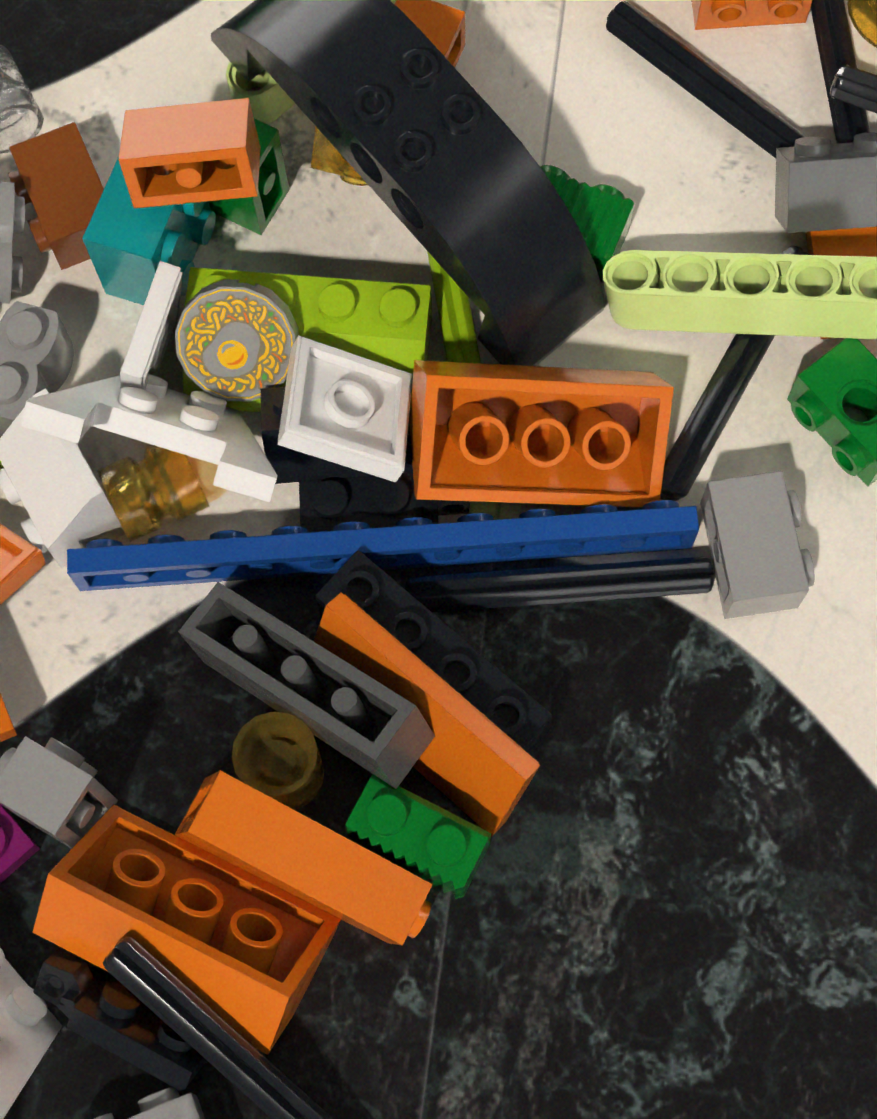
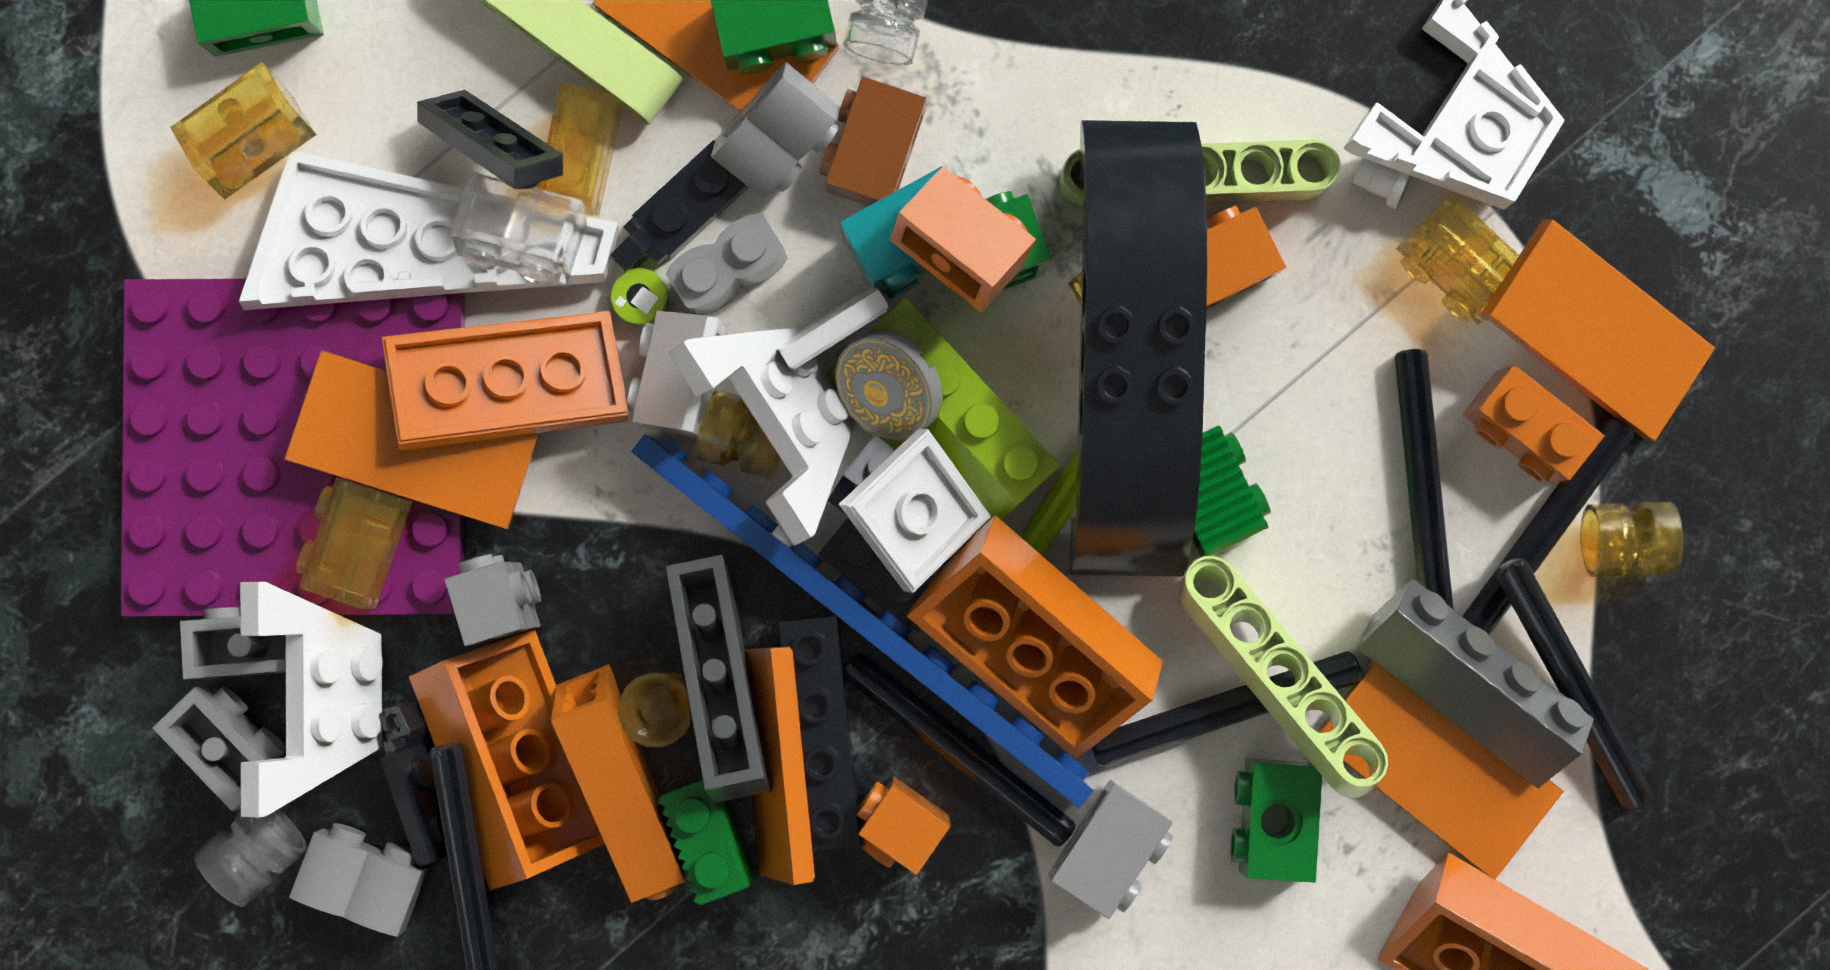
camera: 40 degrees right, 15 degrees up
(570, 667) = (900, 825): none -> orange brick

